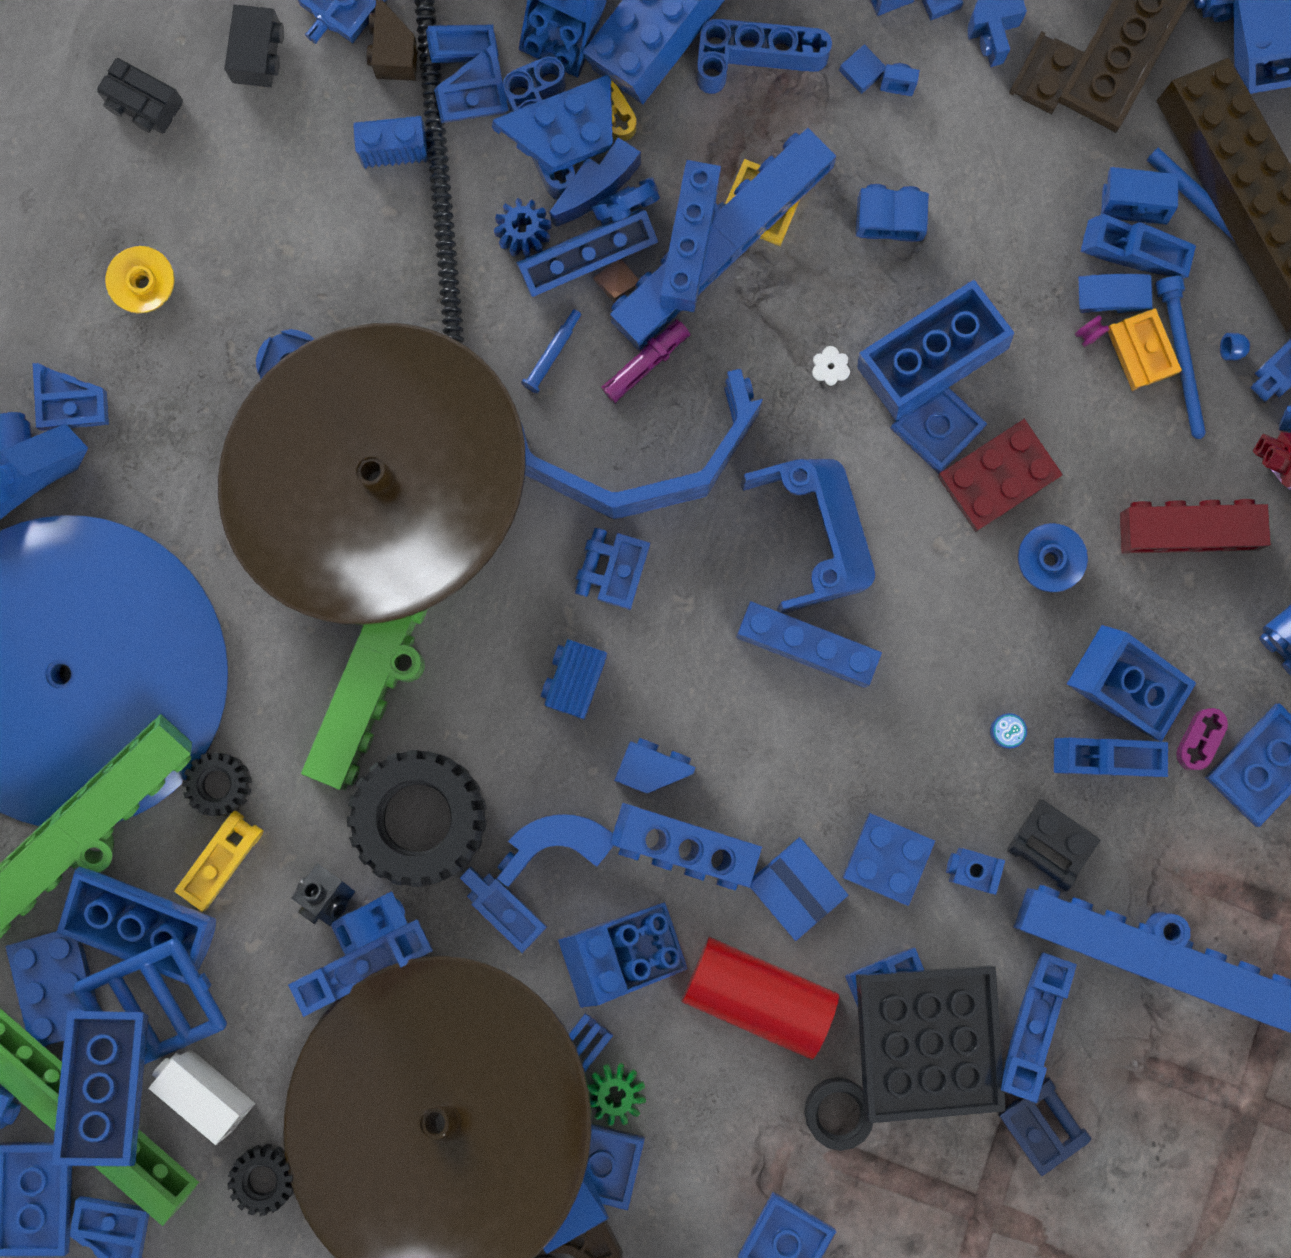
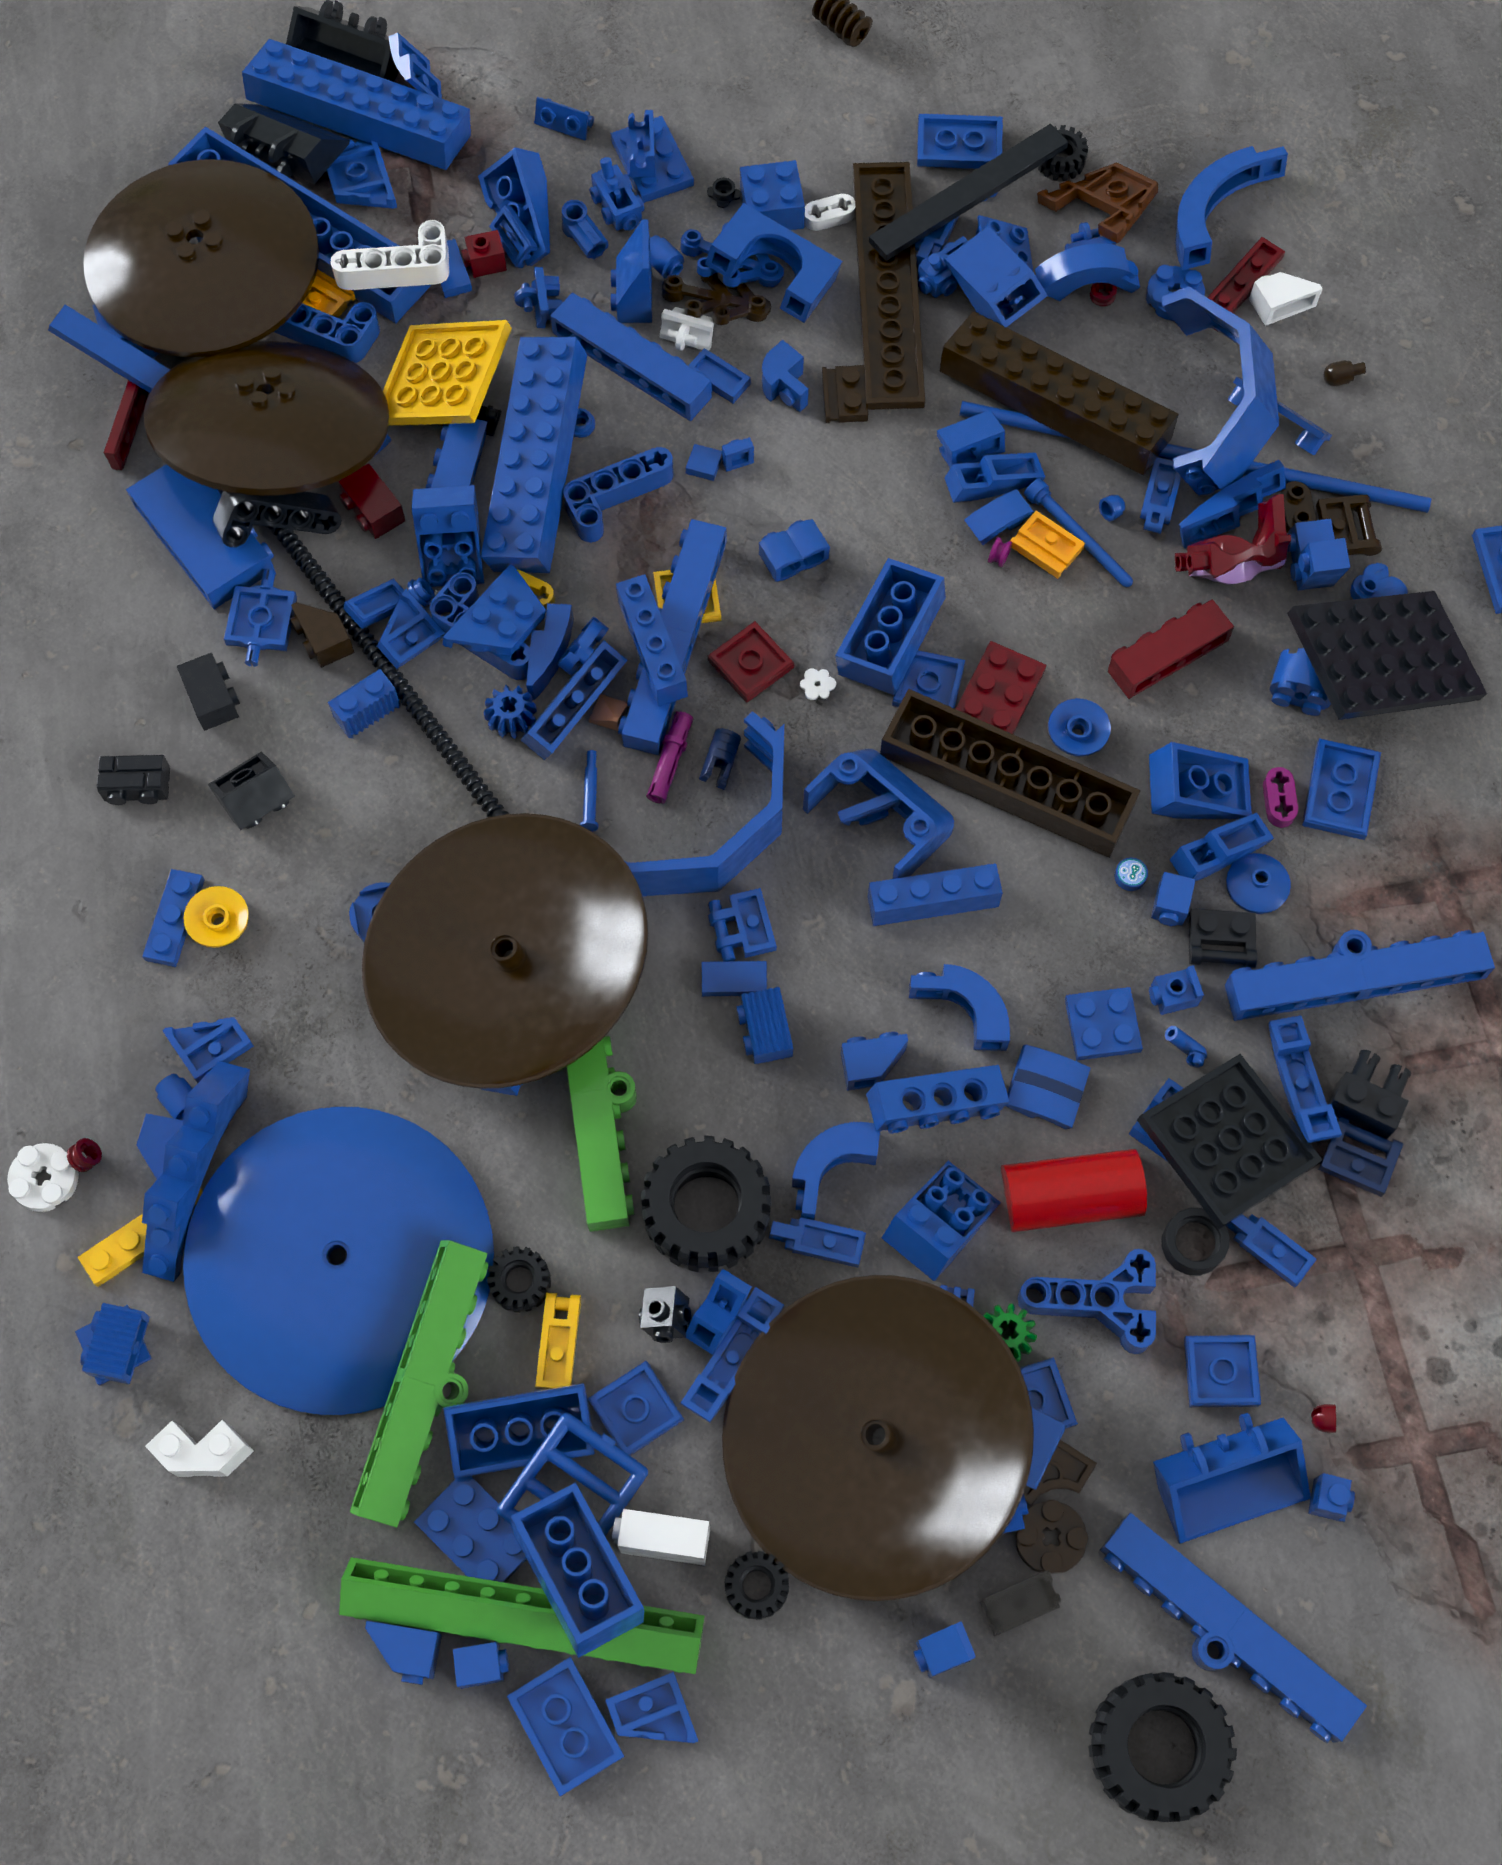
camera: 30 degrees left, 15 degrees down
(88, 271) = (168, 928): none -> blue plate
(239, 171) = (252, 791): none -> black slope
(252, 961) = (635, 1409): none -> blue tile
(509, 54) = (421, 591): none -> blue plate
(575, 614) = (733, 977): none -> blue tile
(696, 385) = (721, 755): none -> dark blue hinge
(743, 1109) = (1118, 1316): none -> blue beam
(780, 307) = (750, 661): none -> dark red plate
(786, 767) = (974, 996): none -> blue arch
(796, 525) = (869, 810): none -> blue tile
(906, 1164) = (1272, 1248): none -> blue hinge
(951, 923) = (1194, 1050): none -> blue arm
(954, 566) = (1009, 772): none -> dark brown brick
(1030, 781) = (1173, 899): none -> blue brick
(1084, 1092) = (1367, 1104): none -> black brick
(1108, 815) = (1250, 893): none -> blue dish

